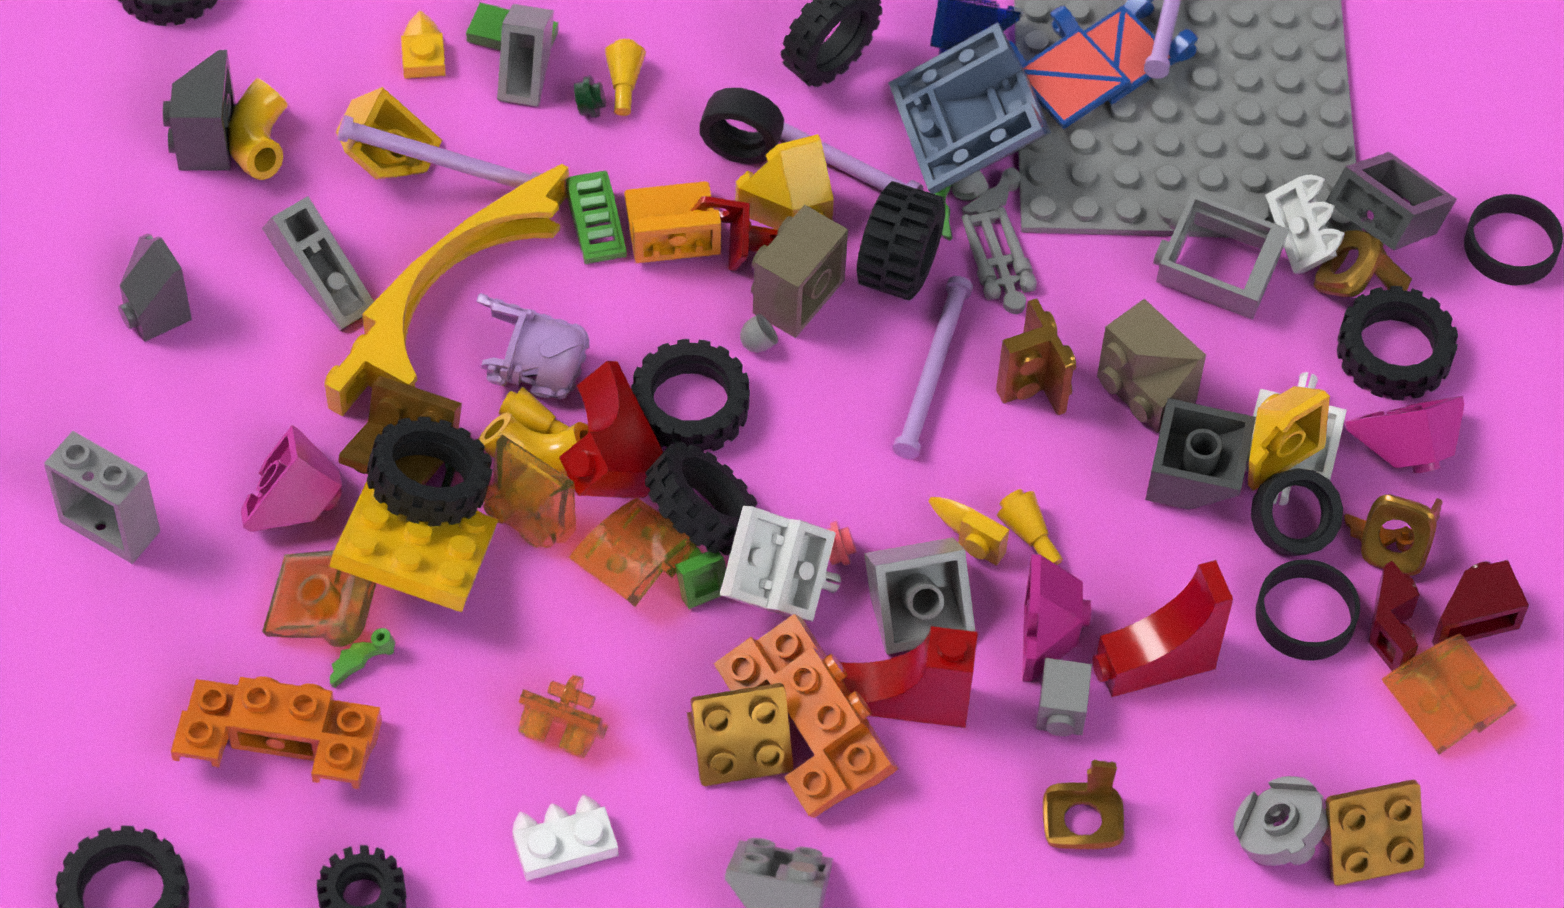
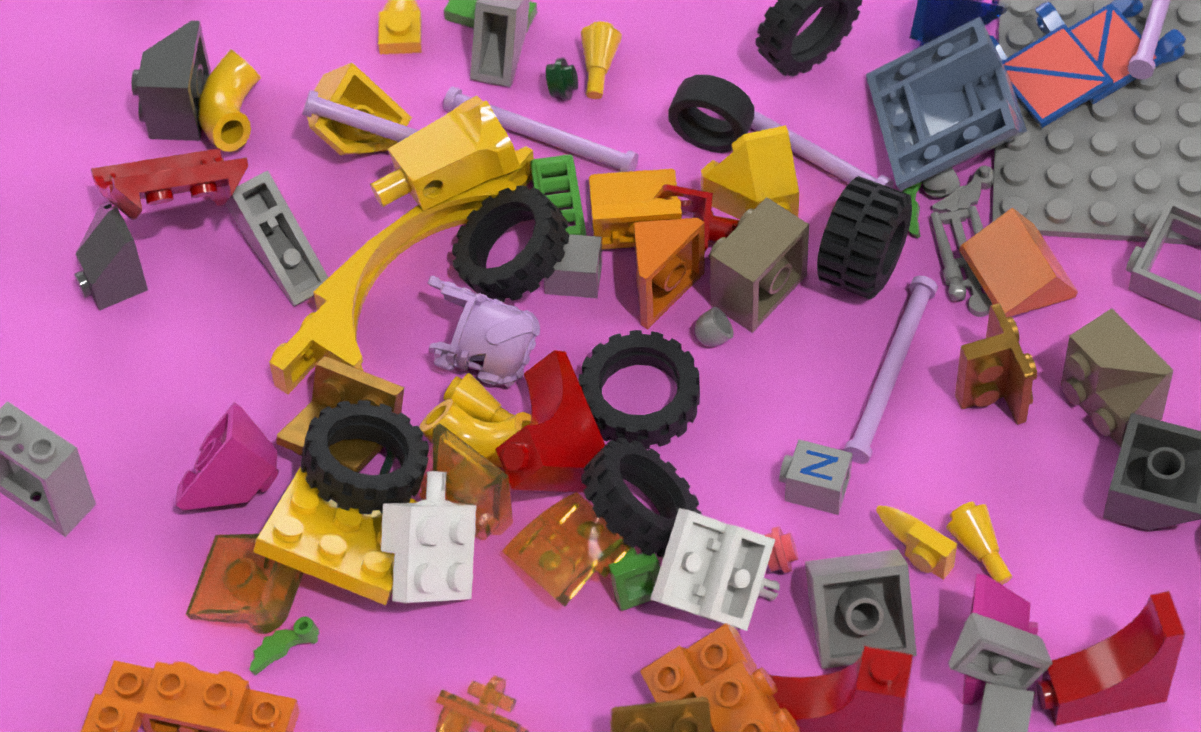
camera: 10 degrees right, 0 degrees up
(206, 206) = (159, 178): none -> red wedge
(486, 122) = (551, 135): none -> lavender bar
(487, 176) = (448, 157): none -> yellow piece
(502, 553) = (430, 545): none -> white plate
(533, 238) = (531, 263): none -> black tyre
(614, 279) = (579, 270): none -> brick
(708, 273) = (667, 263): none -> orange slope
(869, 472) = (816, 476): none -> light grey brick
(1048, 262) = (1016, 265): none -> orange slope
(1057, 629) = (999, 653): none -> light grey slope

